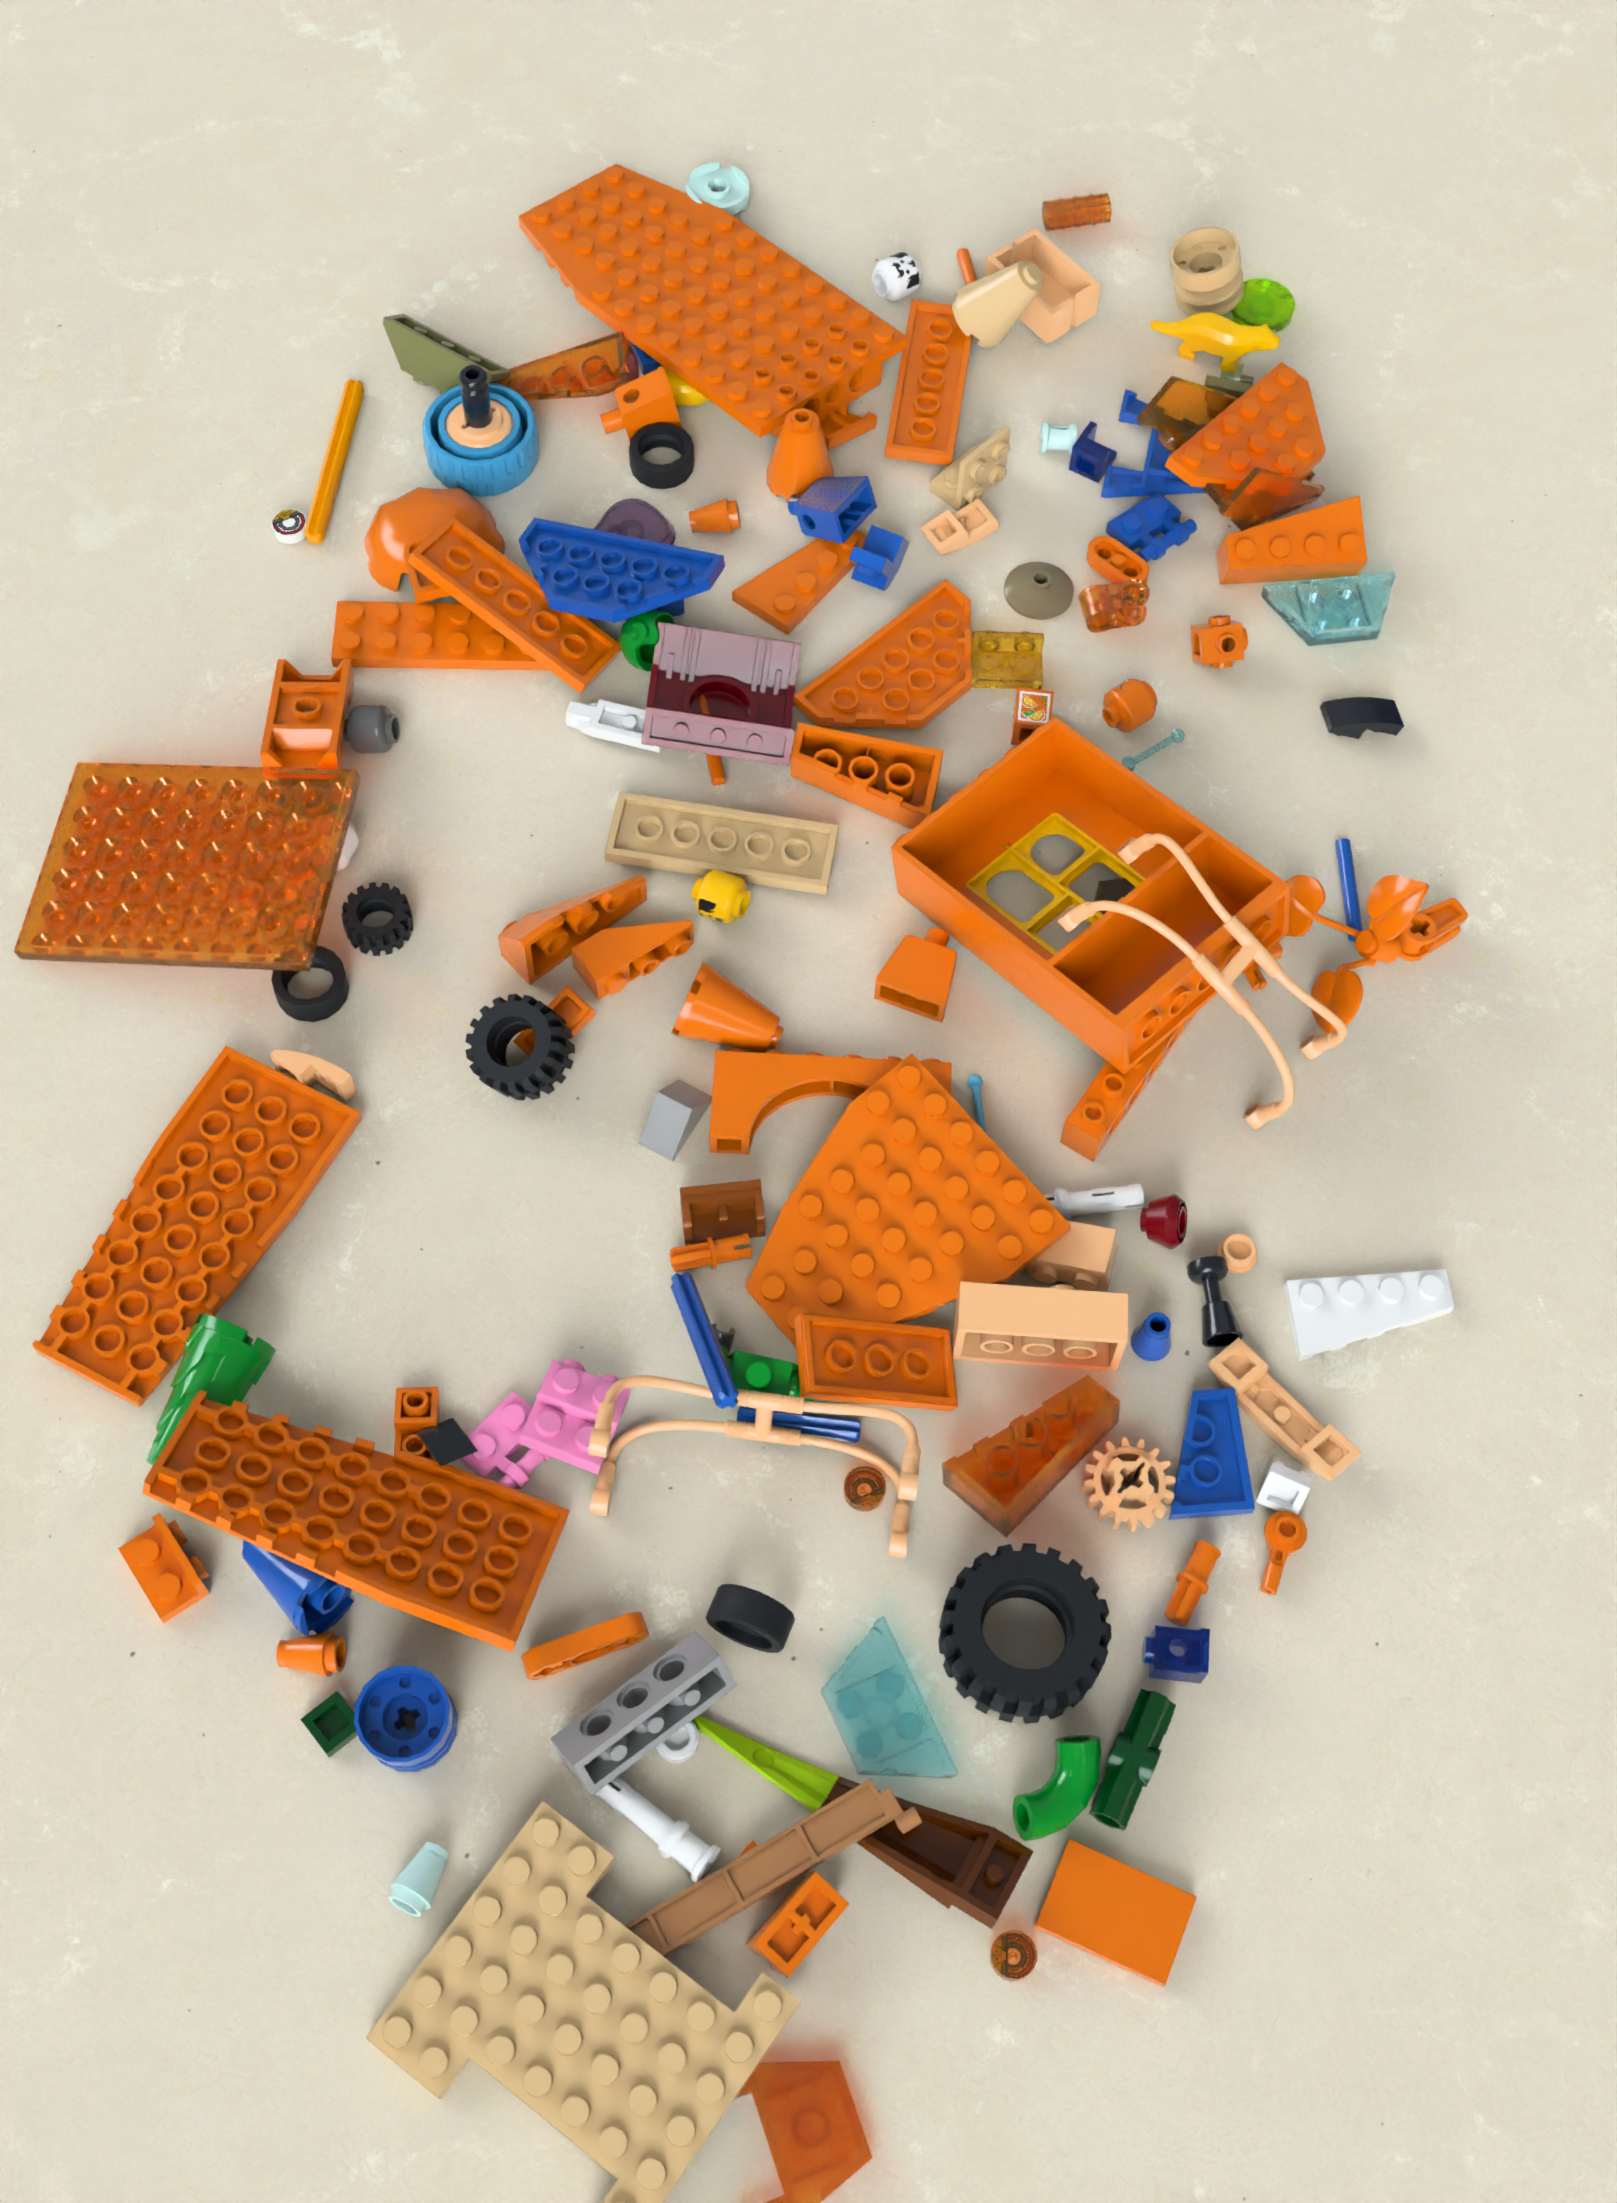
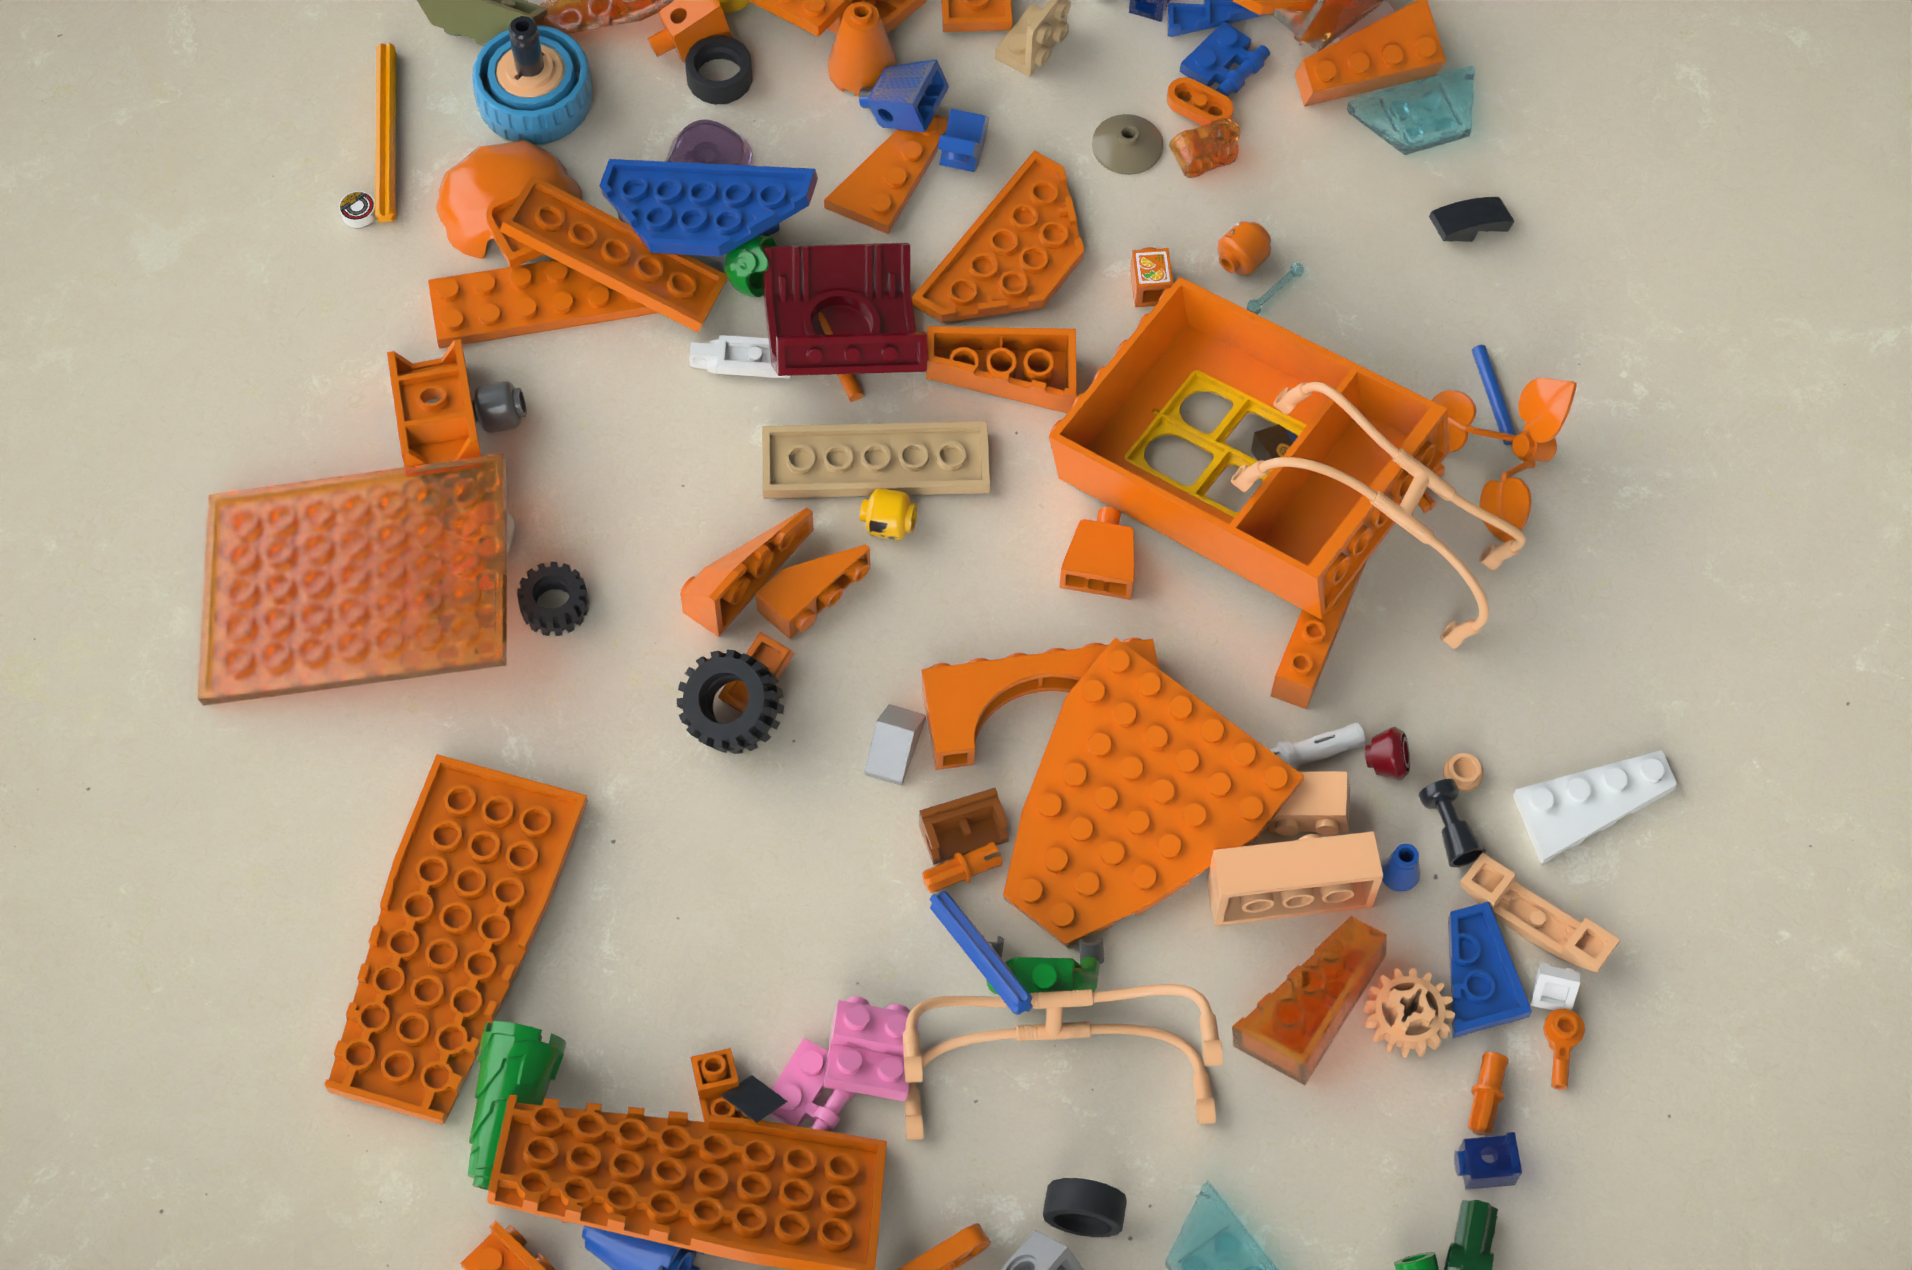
camera: 10 degrees left, 0 degrees up
(312, 1070) = (529, 761): light nougat slope -> none
(318, 1007) = (516, 699): black tyre -> none
(716, 518) = (789, 125): orange cone -> none
(726, 1014) = (921, 631): orange cone -> none
(828, 1426) = (1100, 1013): blue axle -> none
(864, 1488) = (1161, 1065): clear orange tile -> none
(875, 1362) = (1146, 943): orange tile -> none
(957, 530) = (1036, 94): light nougat slope -> none
(975, 1082) = (1177, 653): medium azure hinge -> none
(1007, 659) = (1113, 222): clear yellow bracket -> none
(1050, 1583) = (1355, 1119): black tyre -> none
(1218, 642) = (1317, 168): orange brick -> none
(1431, 929) = (1584, 420): orange piece -> none

